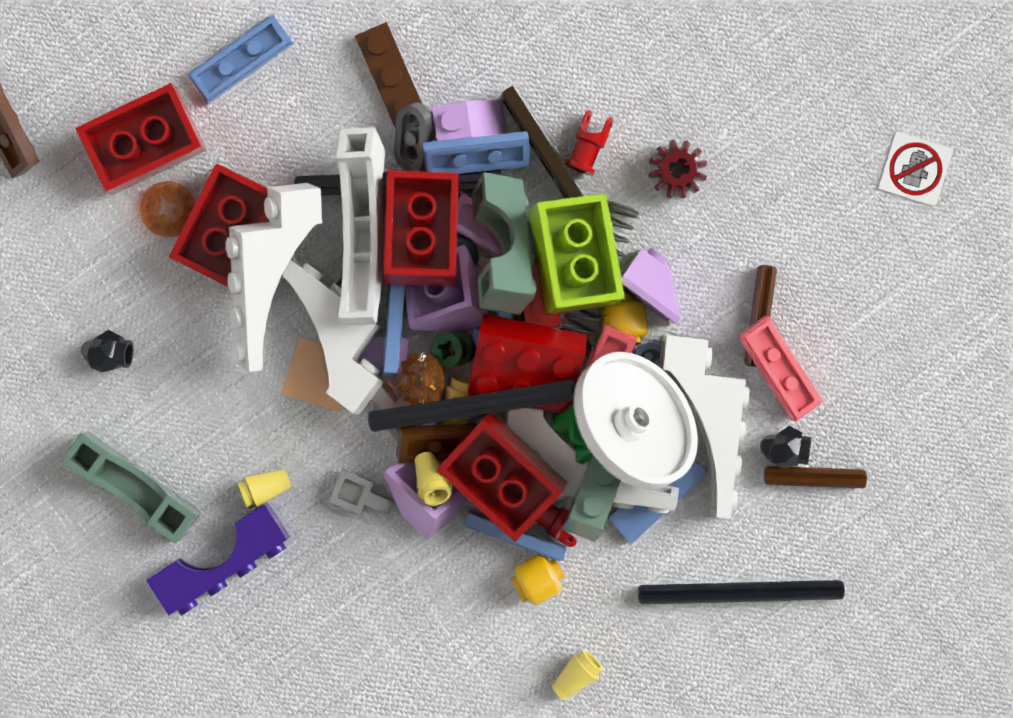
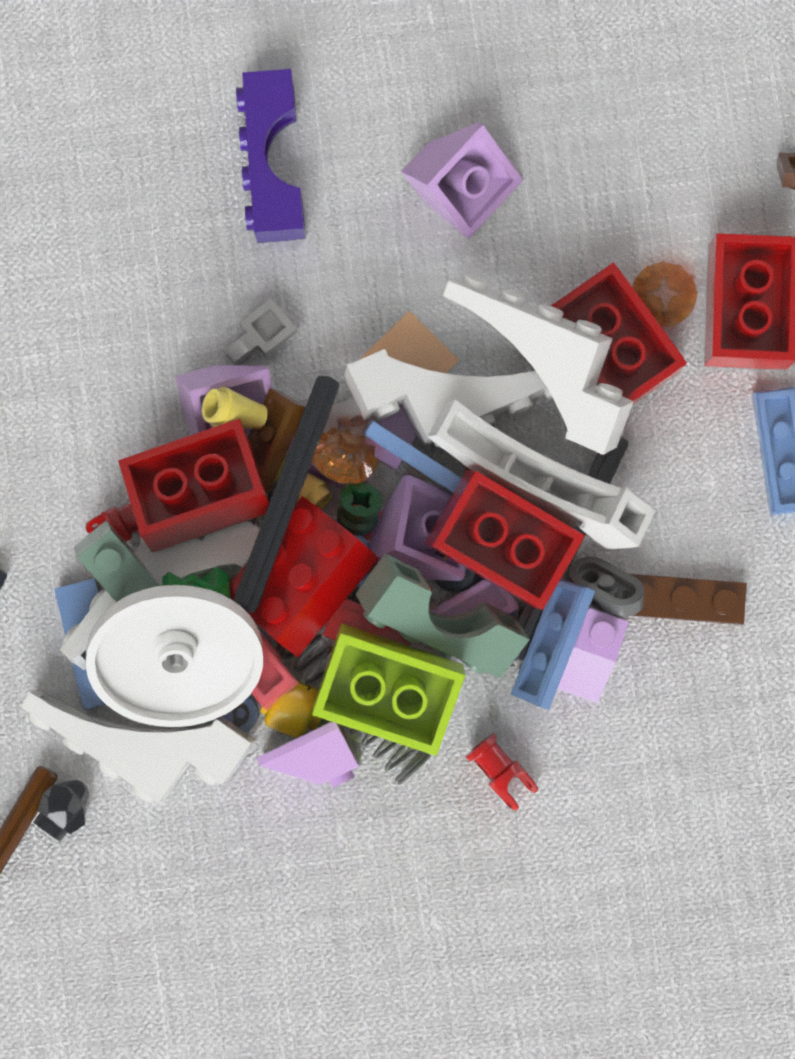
camera: 120 degrees right, 5 degrees down
(108, 352) = (546, 155): black rock -> none
(135, 487) = (364, 122): sand green arch -> none
(159, 406) = (463, 177): none -> lavender slope
(263, 487) = (322, 239): light yellow cone -> none
(527, 540) = (113, 484): medium blue tile -> none
(537, 579) = (70, 470): yellow head -> none
(540, 144) = (526, 718): dark brown tile -> none
(684, 179) = (409, 852): dark red gear -> none
(762, 298) = (219, 857): reddish brown axle -> none
(780, 368) = (151, 847): coral tile -> none

